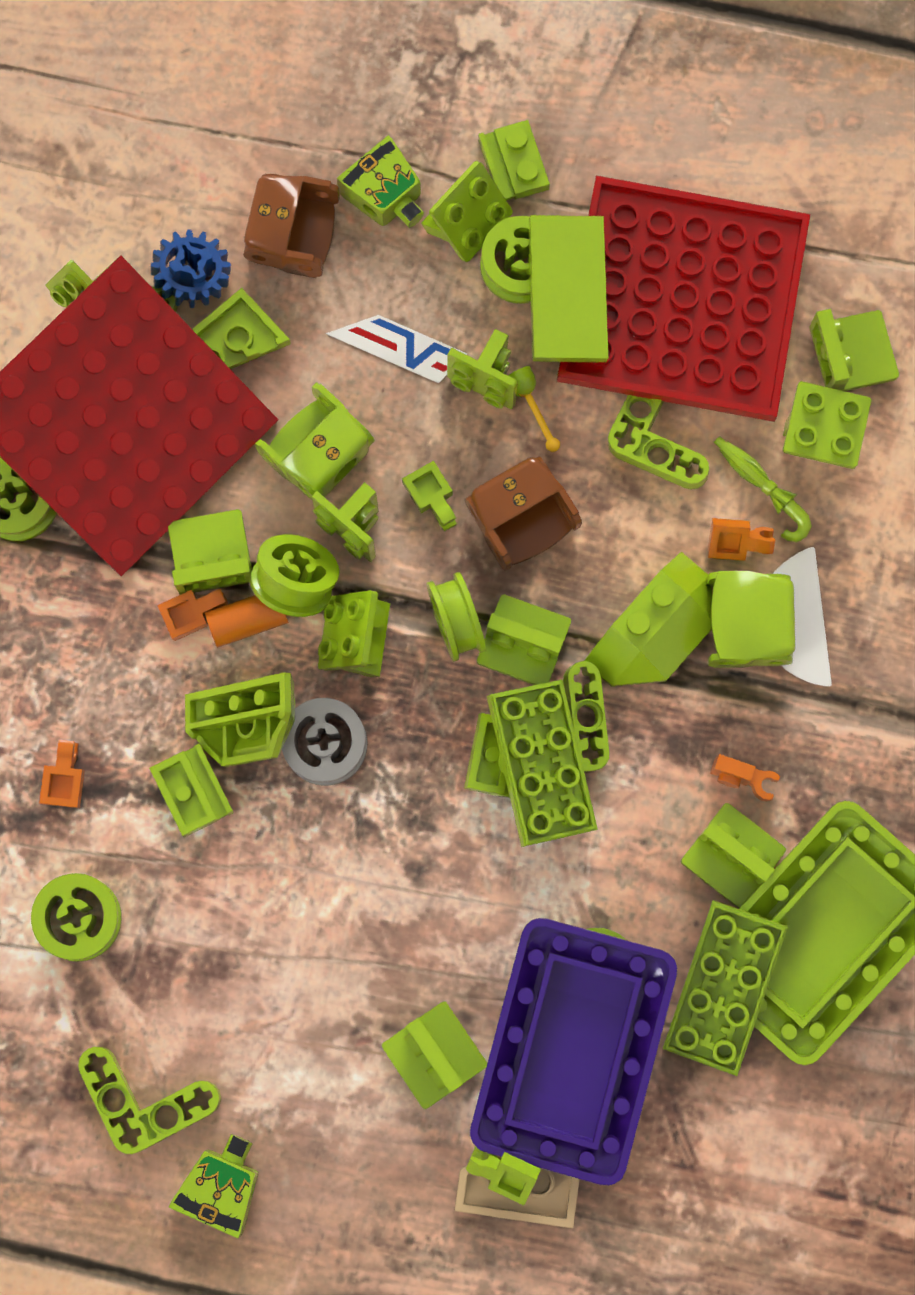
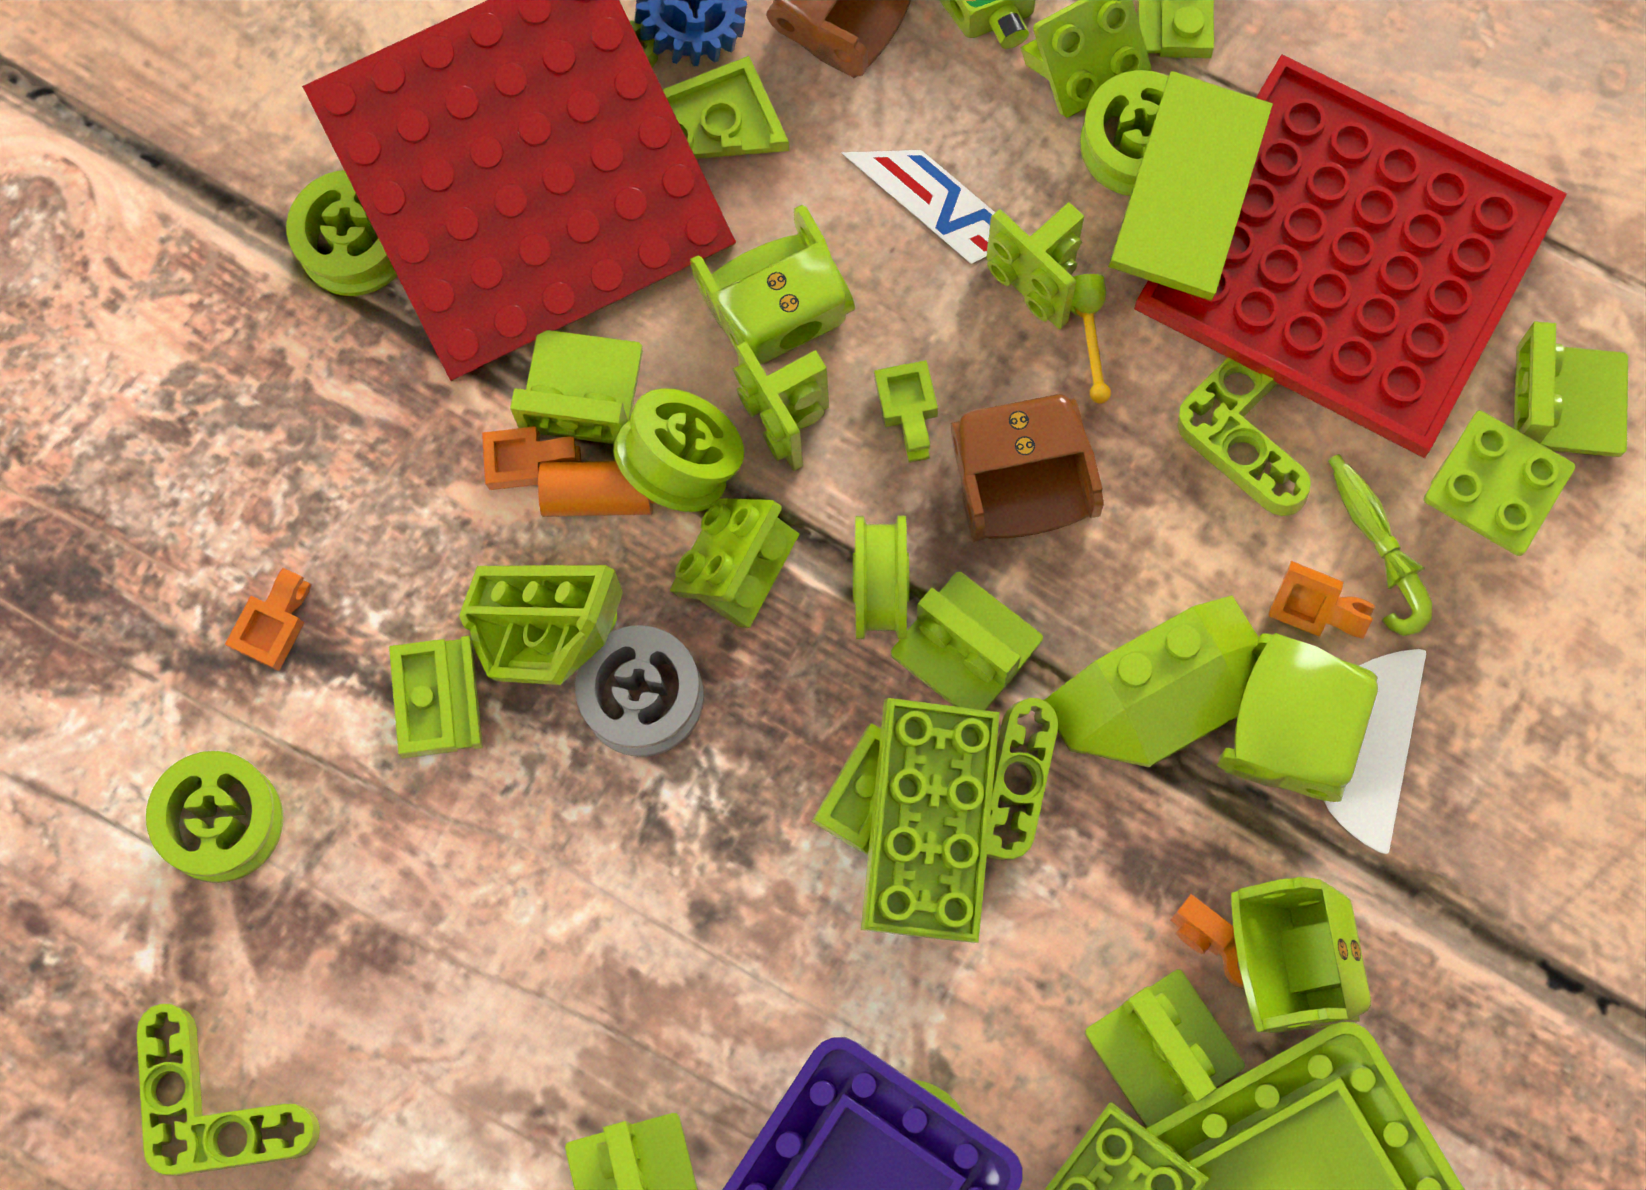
camera: 25 degrees right, 5 degrees down
(798, 769) = (1299, 955): none -> lime piece

